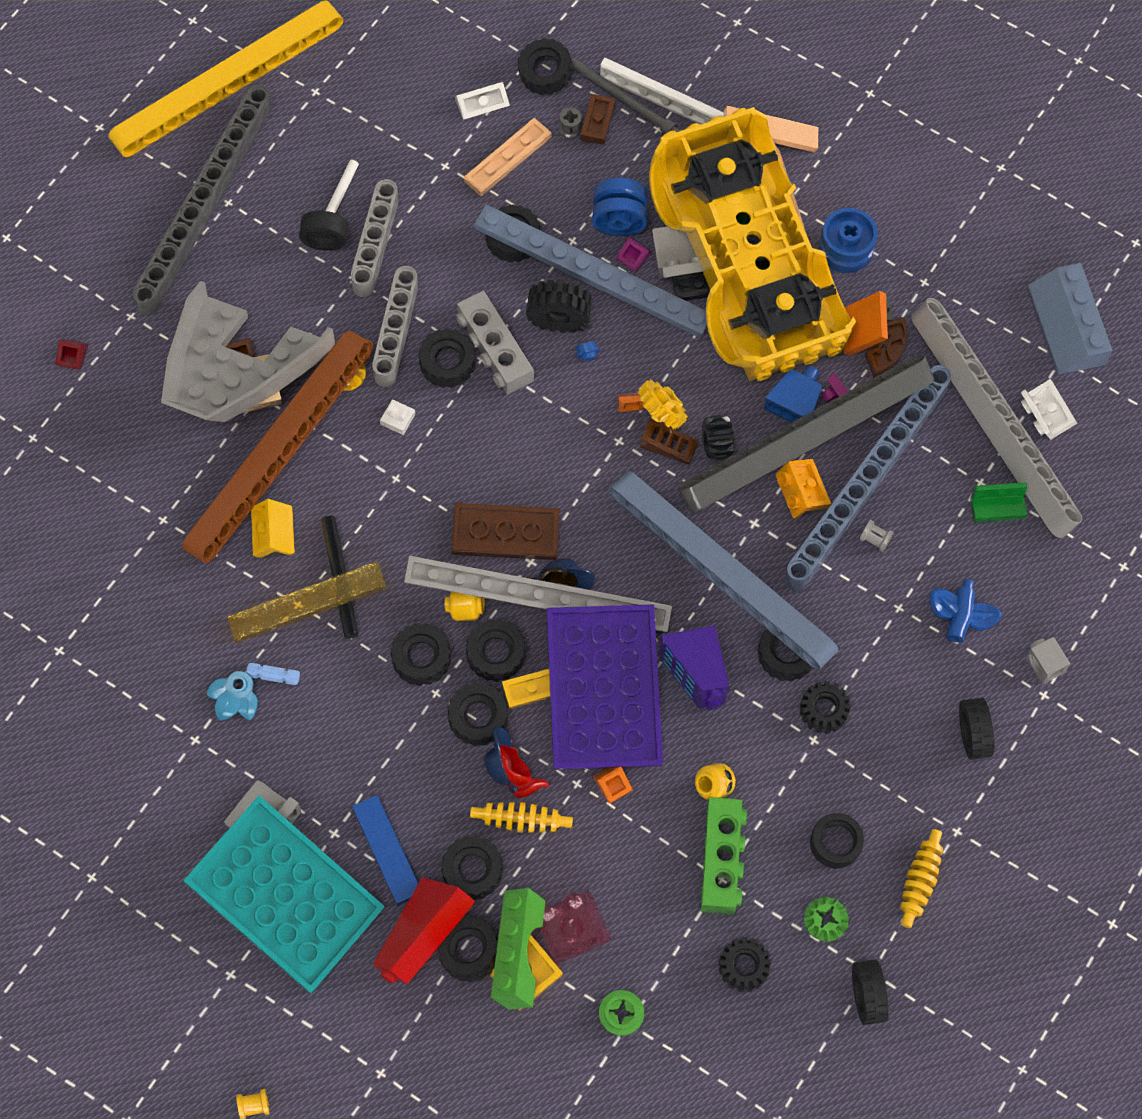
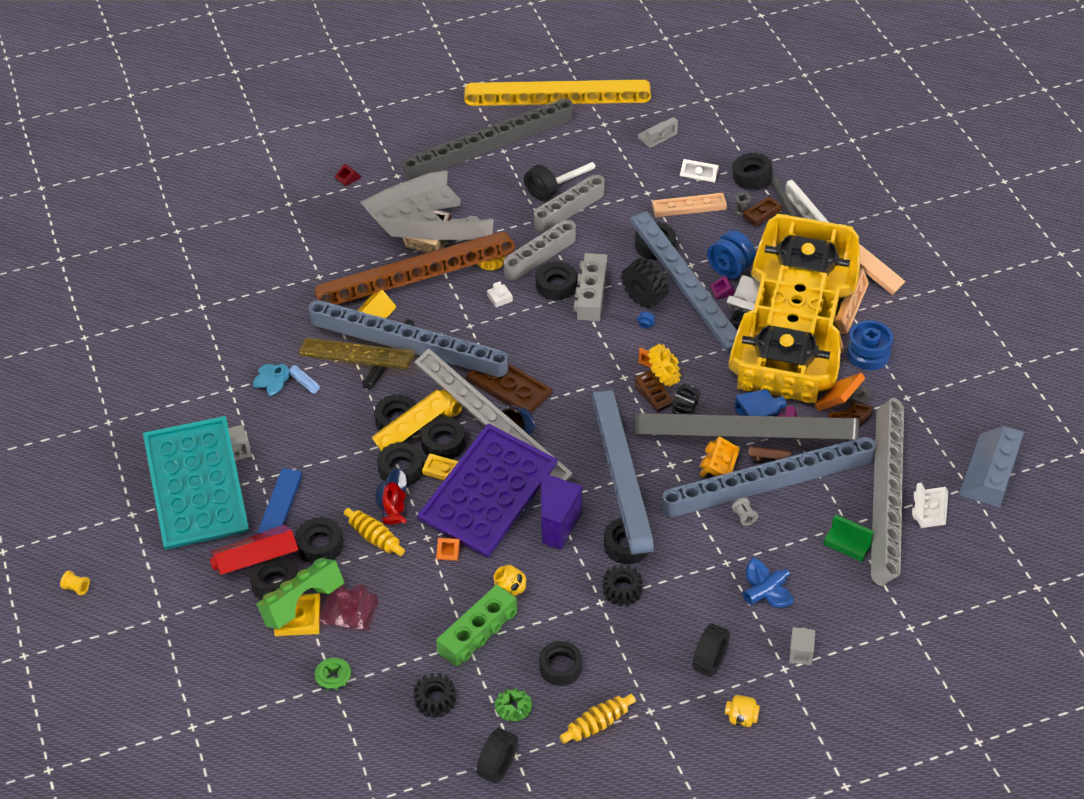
camera: 40 degrees right, 20 degrees down
(344, 557) = (408, 337): none -> sand blue beam
(391, 69) = (659, 132): none -> light grey panel
(452, 656) = (411, 420): none -> yellow plate
(846, 446) = (760, 453): none -> reddish brown plate
(1047, 772) = (742, 711): none -> yellow head

